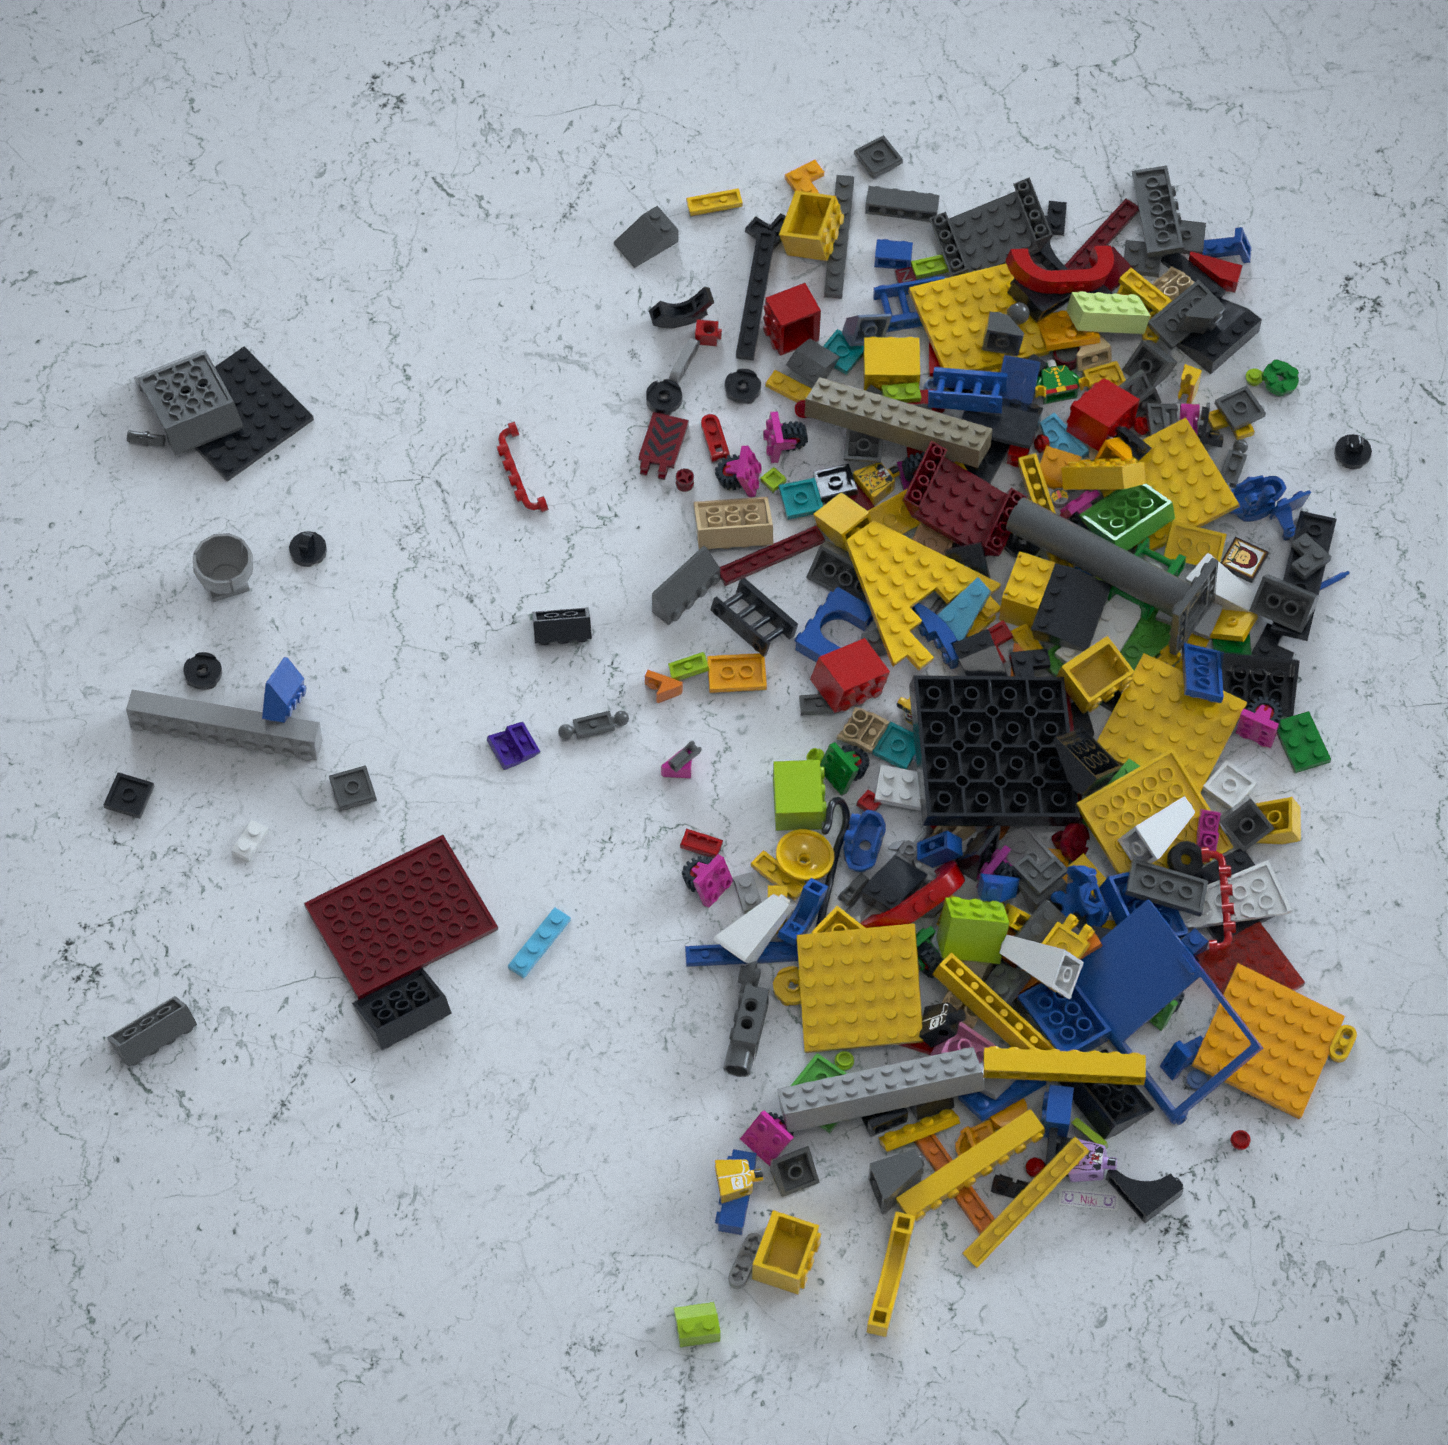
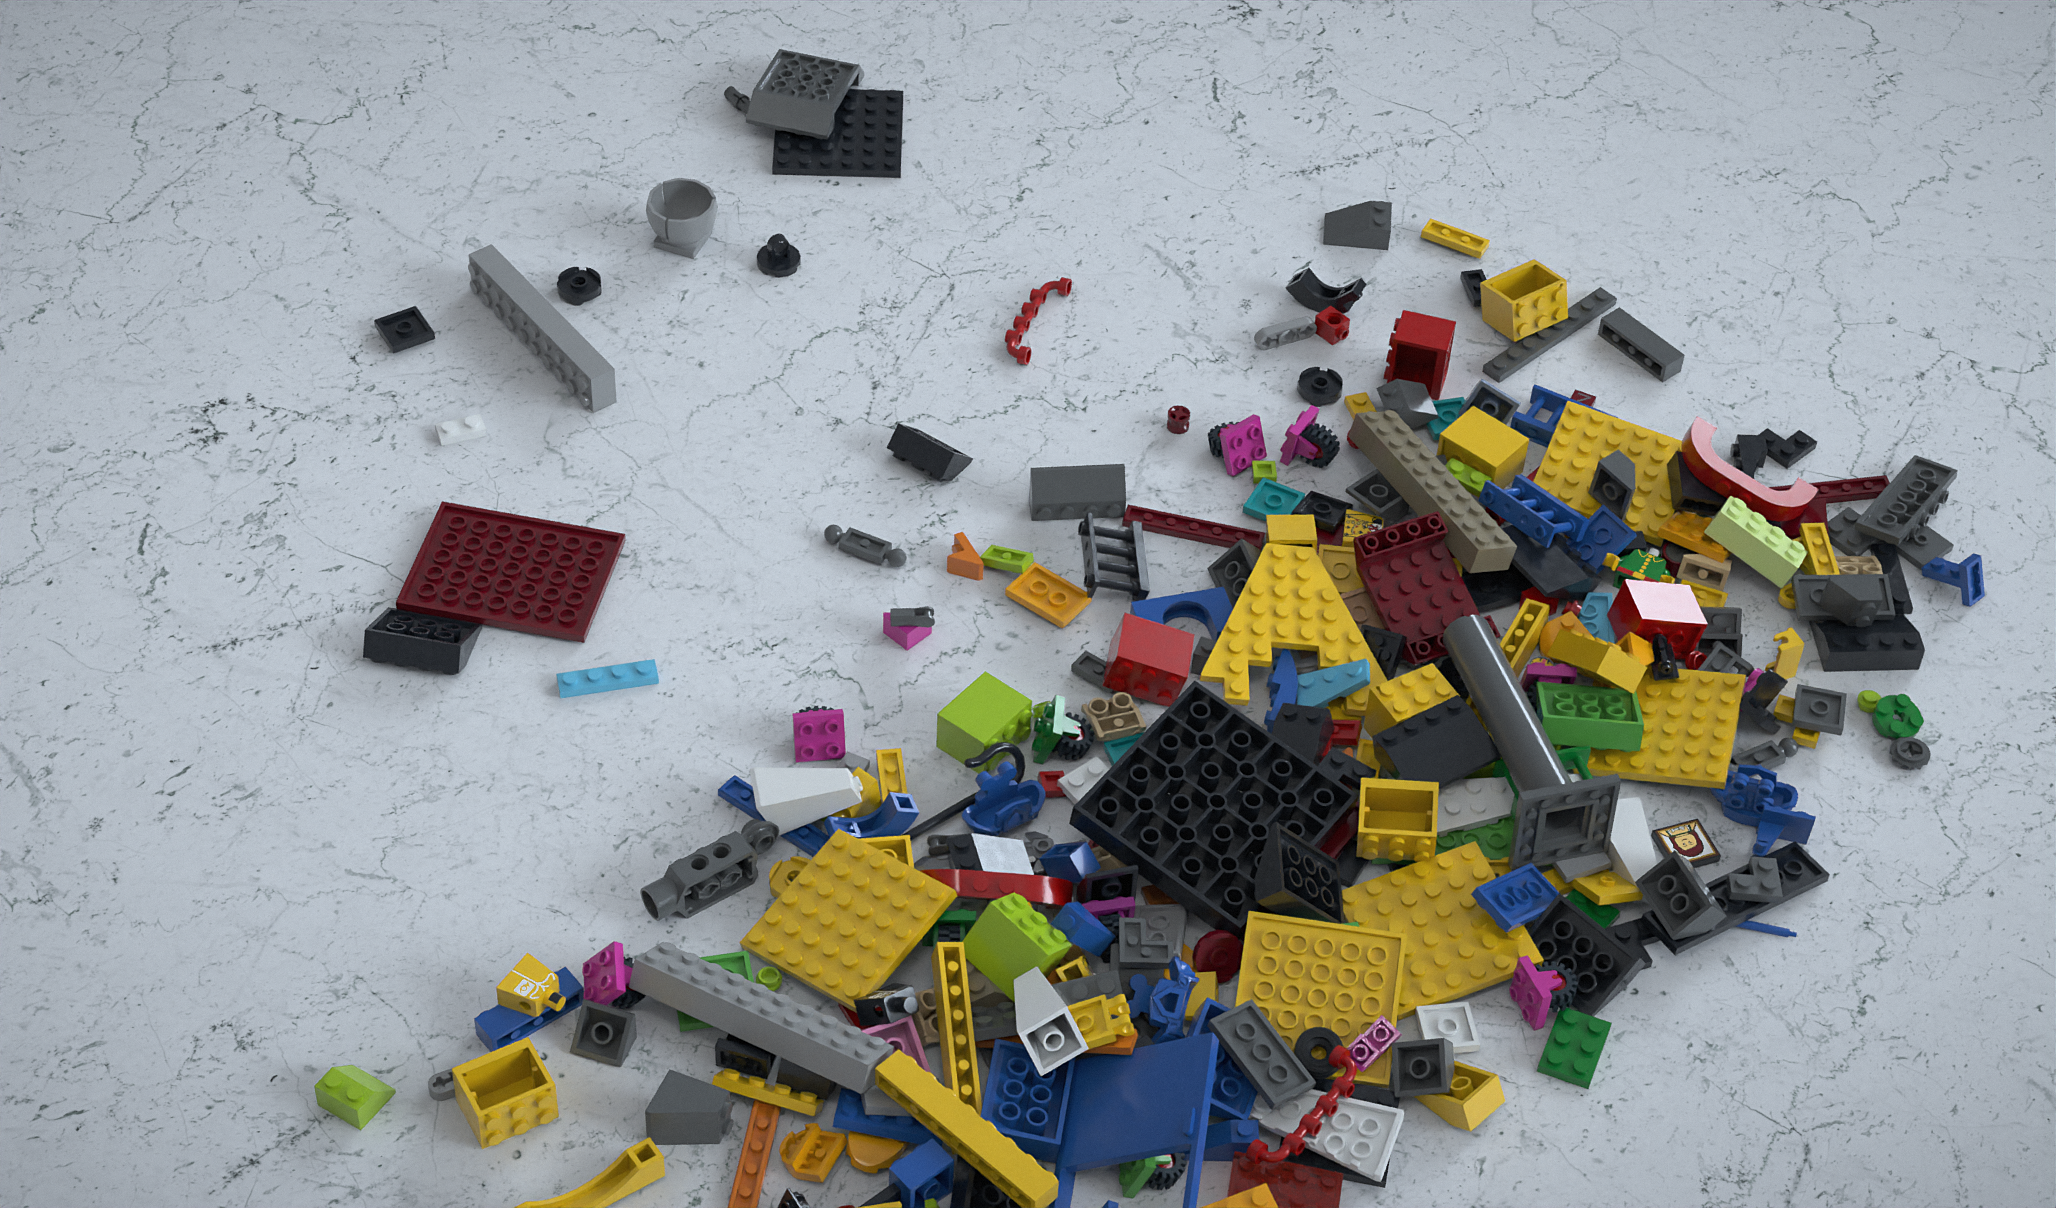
camera: 40 degrees right, 15 degrees down
(152, 1031) = (196, 506): dark grey slope -> none
(283, 692) = (612, 325): slope -> none
(352, 788) = (594, 449): dark grey plate -> none
(513, 745) = (774, 514): dark purple slope -> none
(660, 405) = (1243, 354): black plate -> none
(662, 443) = (1190, 382): dark red tile -> none
(701, 843) = (853, 706): red plate -> none
(714, 437) = (1246, 403): red plate -> none
(733, 523) = (1183, 480): tan slope -> none
(755, 294) = (1437, 306): black plate -> none
(803, 176) = (1571, 270): light orange plate -> none
(807, 847) = (932, 776): yellow dish -> none
(878, 156) = (1658, 297): dark grey plate -> none
(893, 254) = (1587, 375): blue brick -> none
(929, 266) = (1617, 406): lime plate -> none
(971, 1165) = (775, 1157): yellow brick -> none
(988, 232) = (1736, 413): dark grey slope -> none
(1018, 313) = (1656, 483): dark grey piece -> none
(1152, 360) = (1763, 617): dark grey slope -> none
(1154, 835) = (1306, 996): white slope -> none
(1193, 543) = (1643, 782): yellow plate -> none
(1222, 272) = (1927, 595): red slope -> none
(1306, 390) = (1918, 749): none -> dark grey gear
(1353, 451) = (1915, 831): black tile -> none

